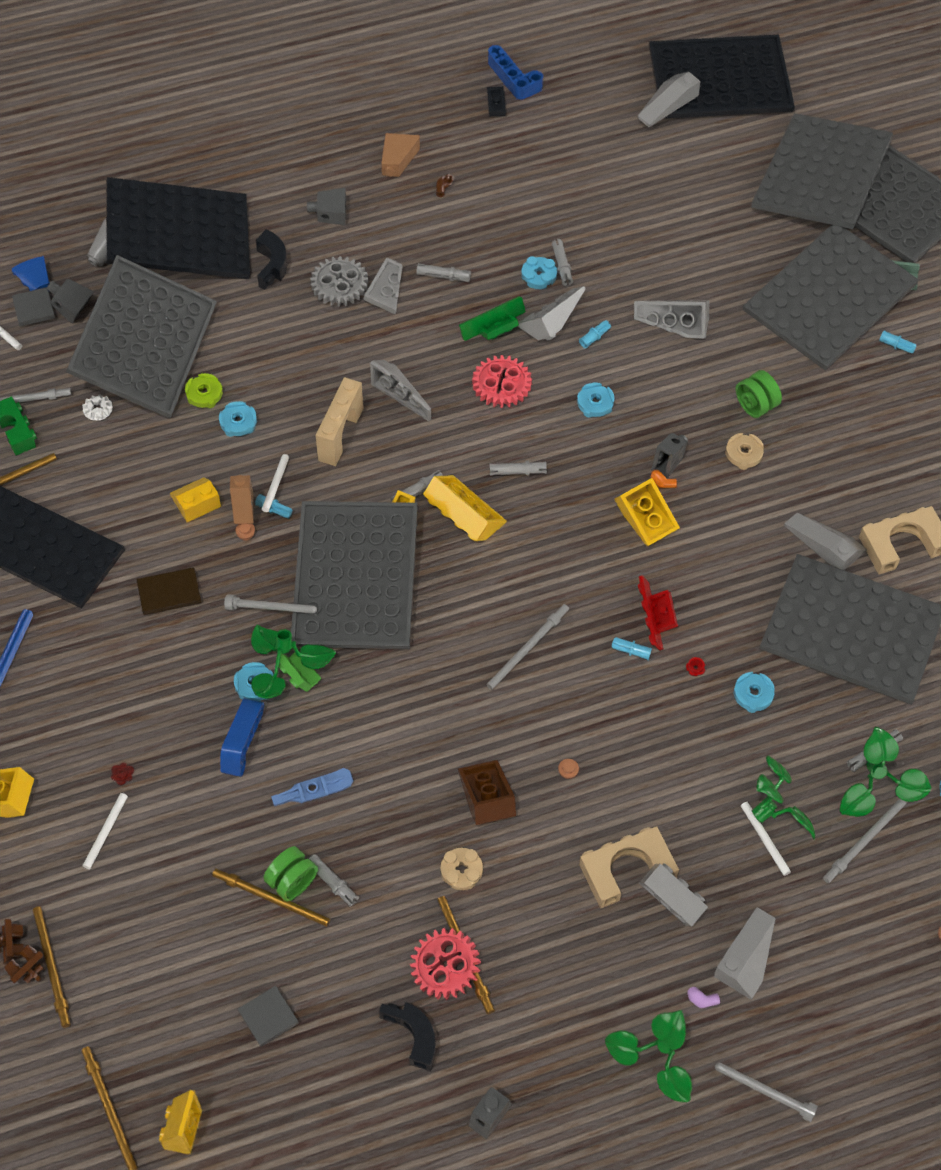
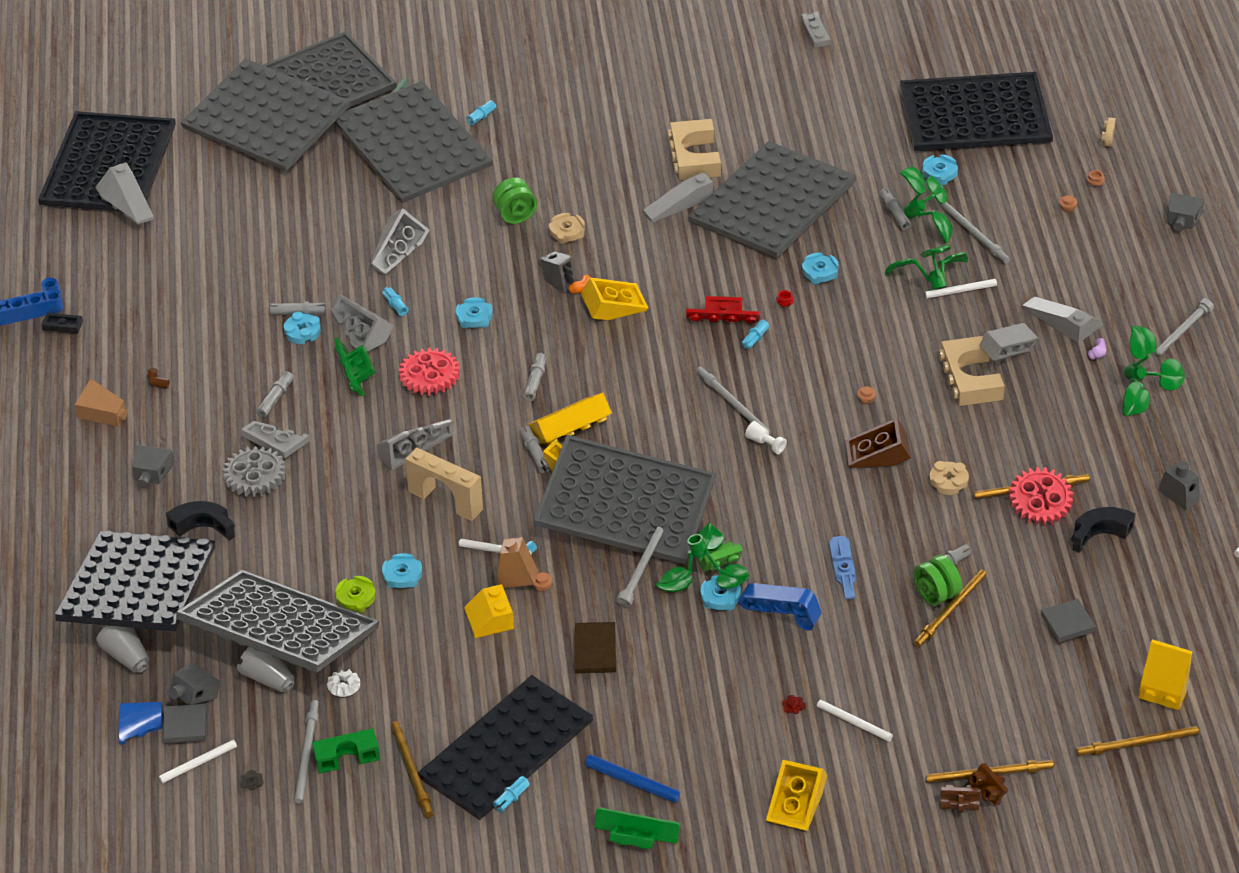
camera: 75 degrees left, 15 degrees down
(480, 678) = (760, 434): none -> white piece

